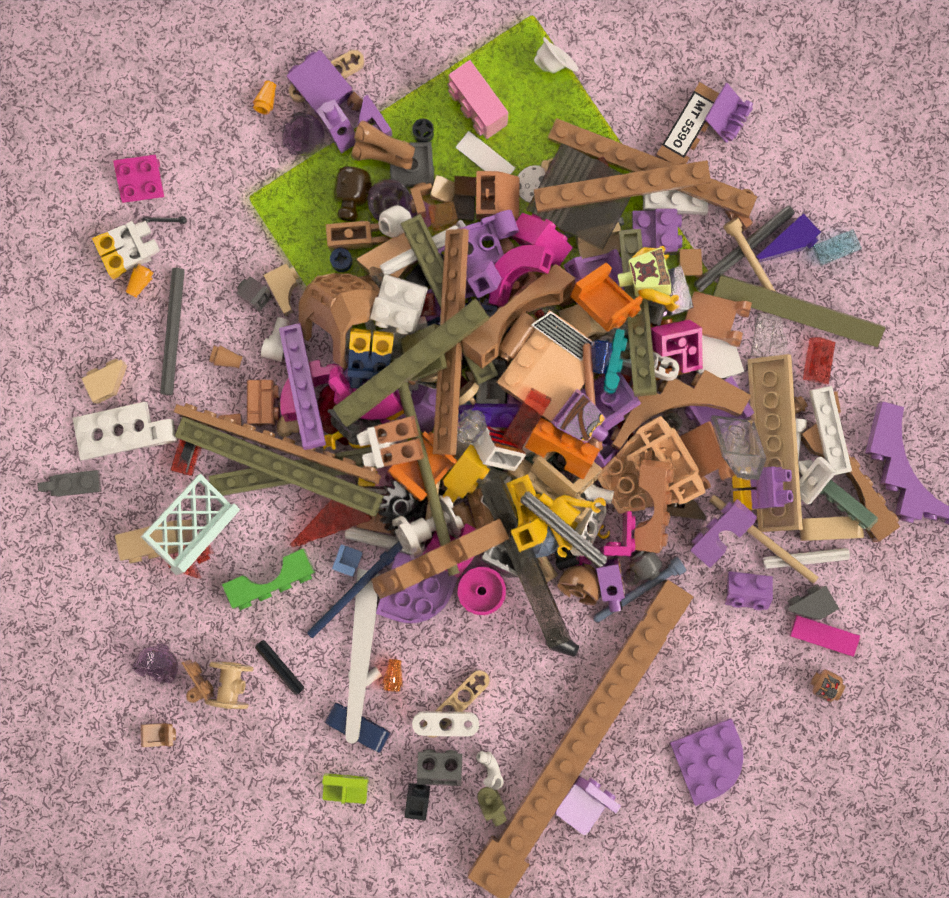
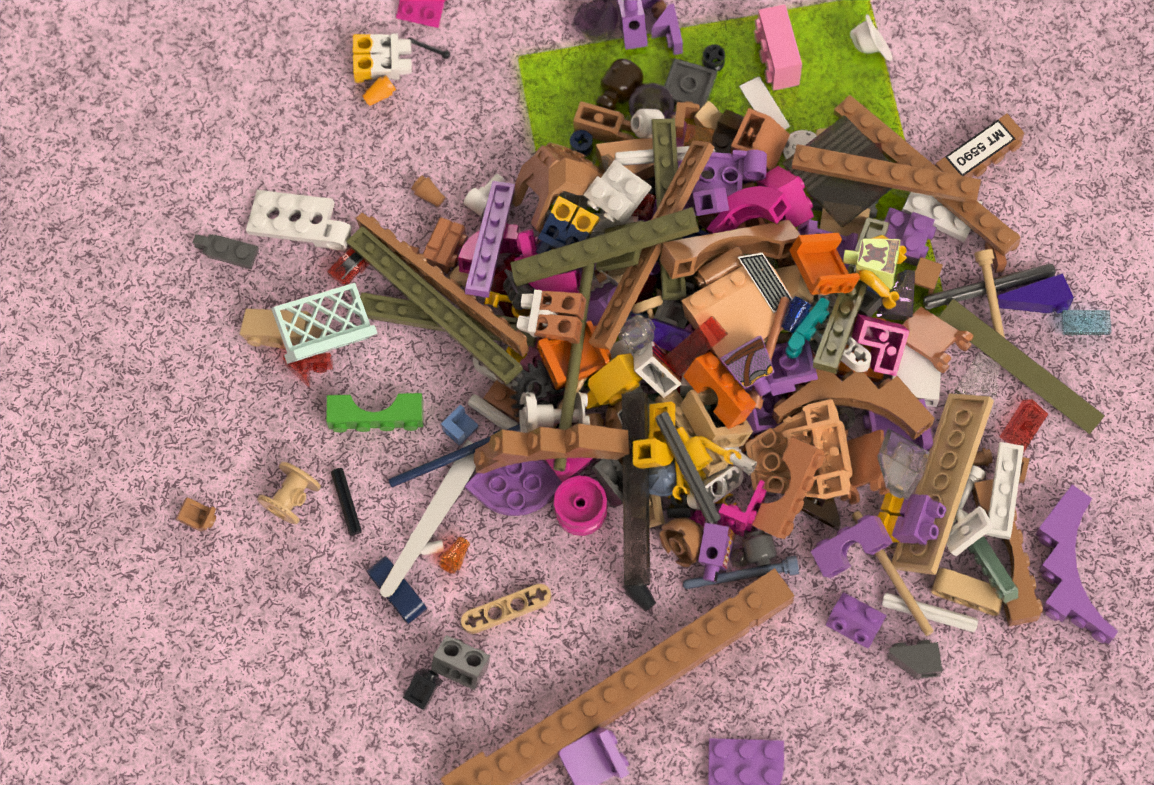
camera: 30 degrees right, 15 degrees down
(104, 382) = (304, 168): tan slope -> none
(157, 663) = (227, 445): clear purple cylinder -> none
(172, 331) = (388, 149): dark grey axle -> none
(203, 688) = (258, 484): medium nougat hinge -> none
(254, 293) = (484, 143): dark grey slope -> none
(282, 282) = (514, 146): tan arch -> none
(329, 521) = (462, 379): clear red wing -> none
(345, 788) = (357, 645): lime panel -> none
(376, 145) = (665, 54): medium nougat piece -> none
(434, 729) = (495, 627): white piece -> none
(491, 805) = (497, 717): olive hips -> none
(494, 776) = (514, 681): white piece -> none
(728, 114) = (1024, 153): medium lavender hinge -> none
(824, 635) = (917, 698): dark pink tile -> none
(827, 685) = (899, 747): head -> none

